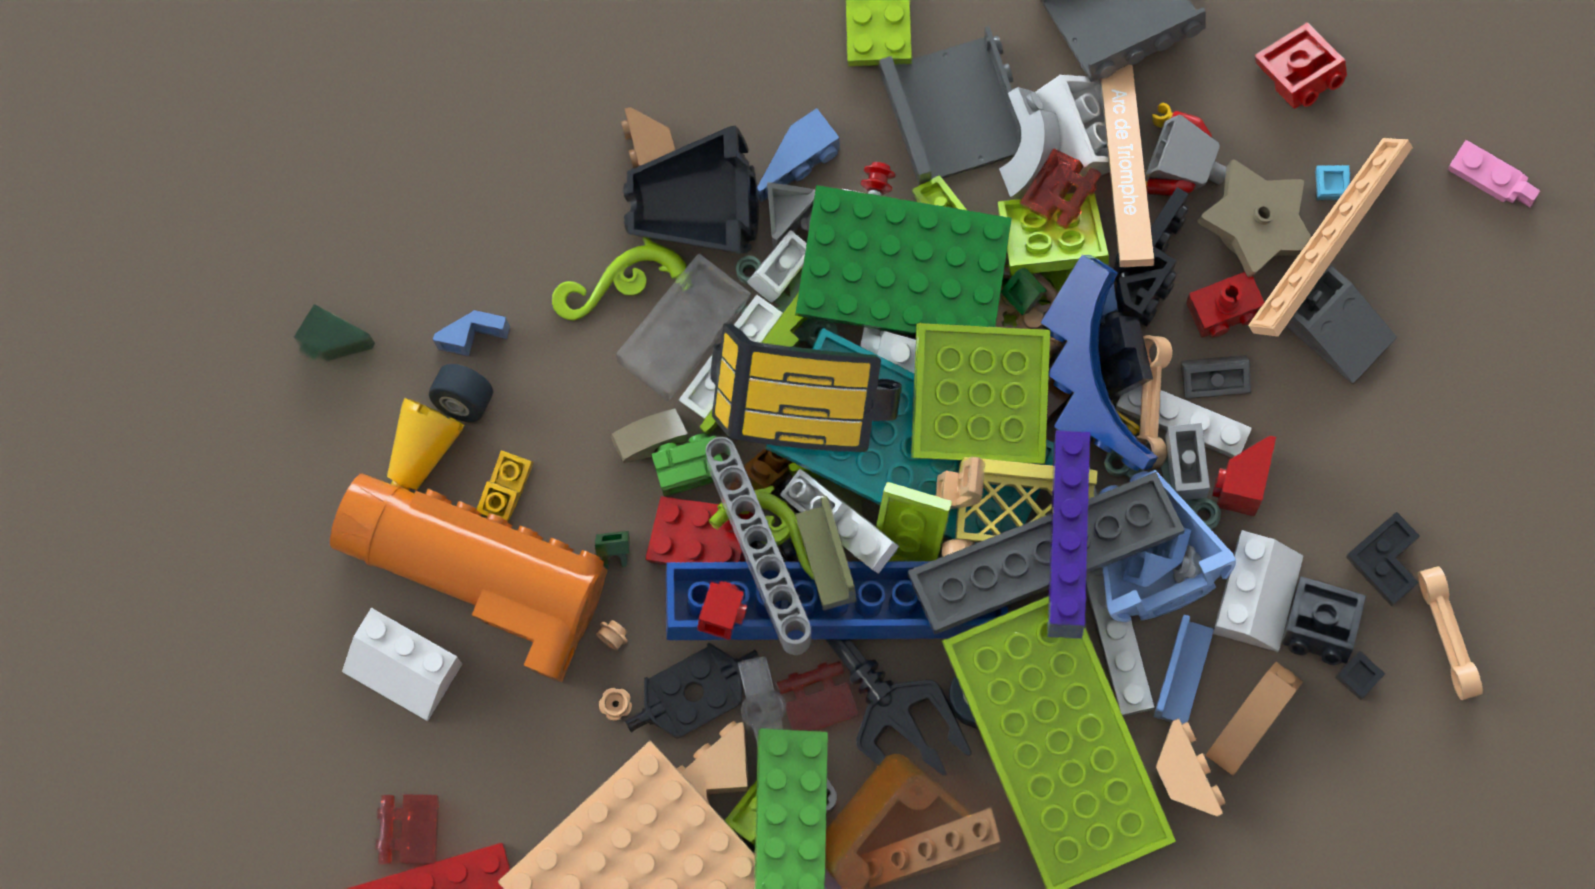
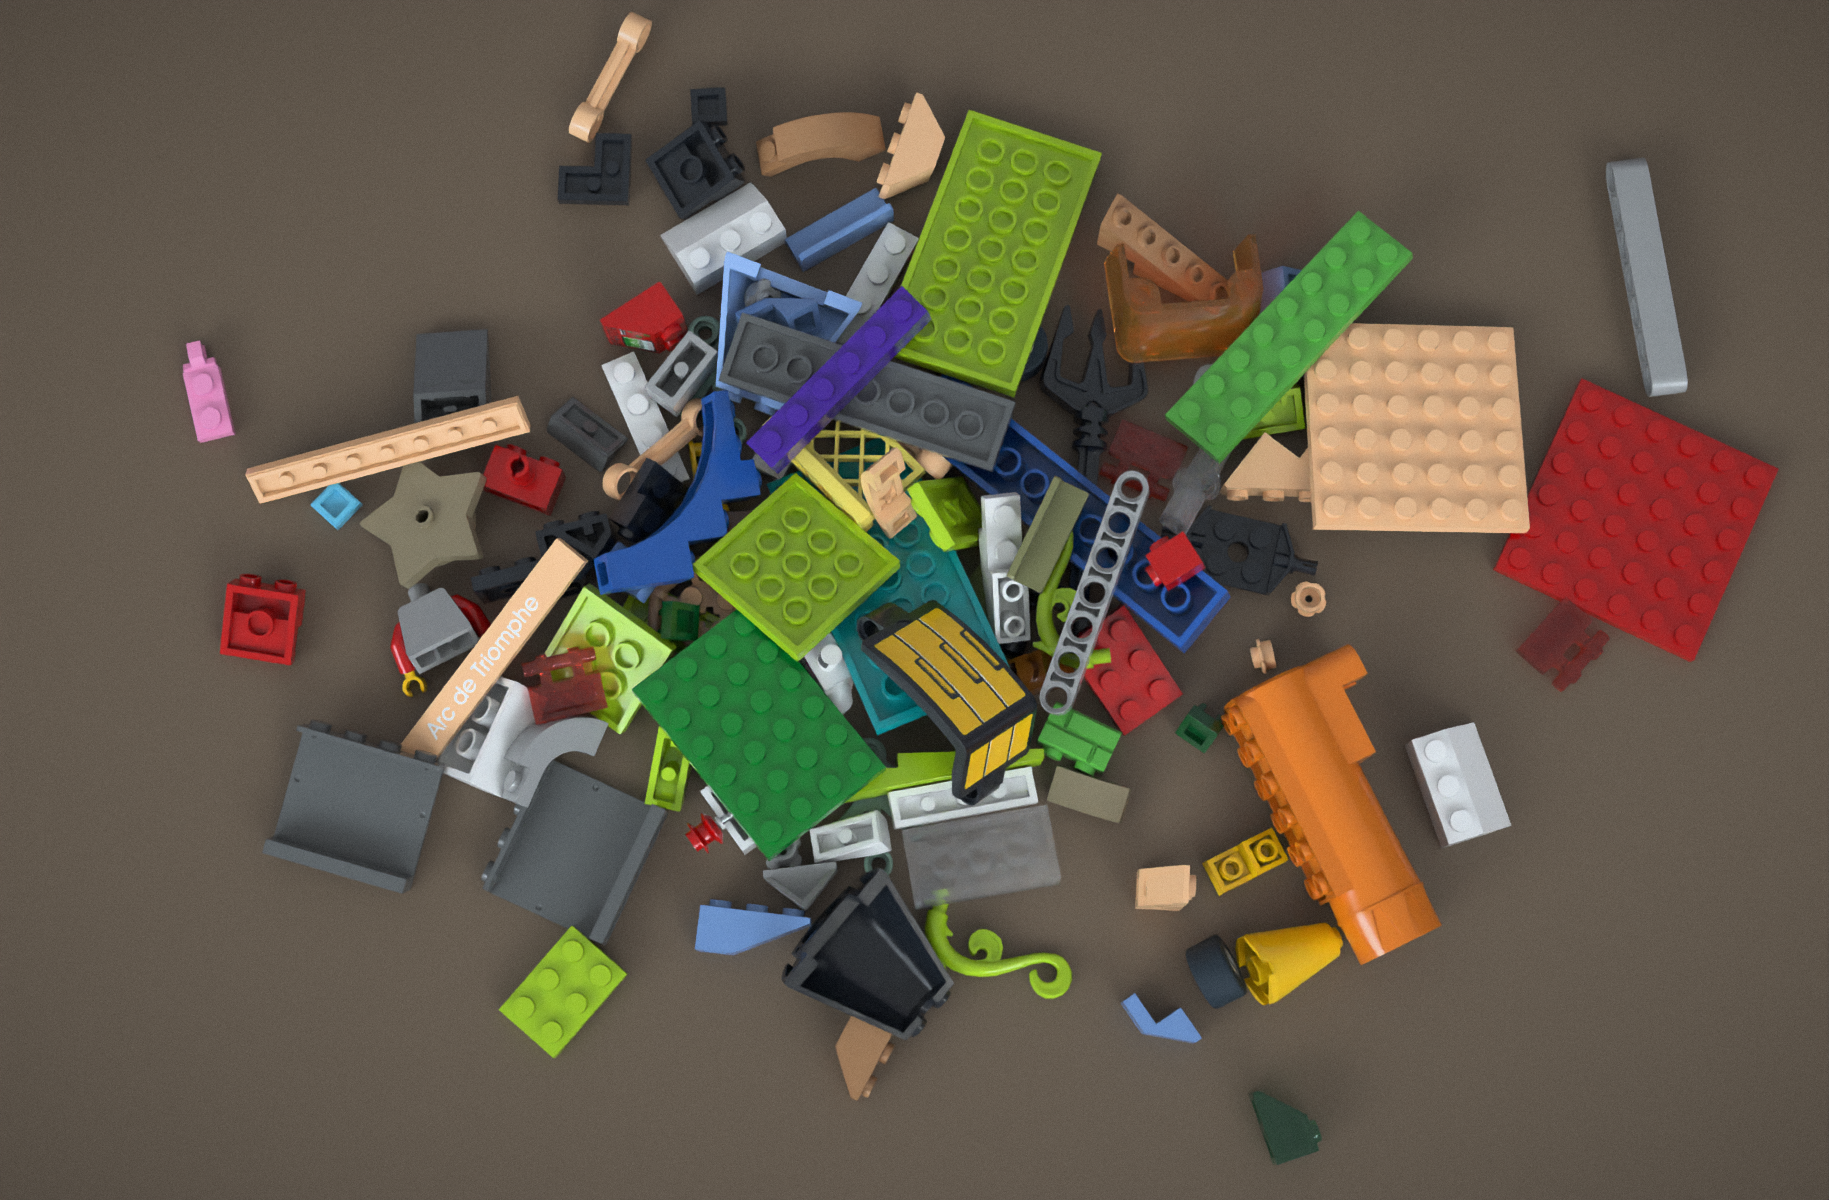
camera: 145 degrees left, 5 degrees up
(540, 411) = (1164, 888): none -> light nougat slope

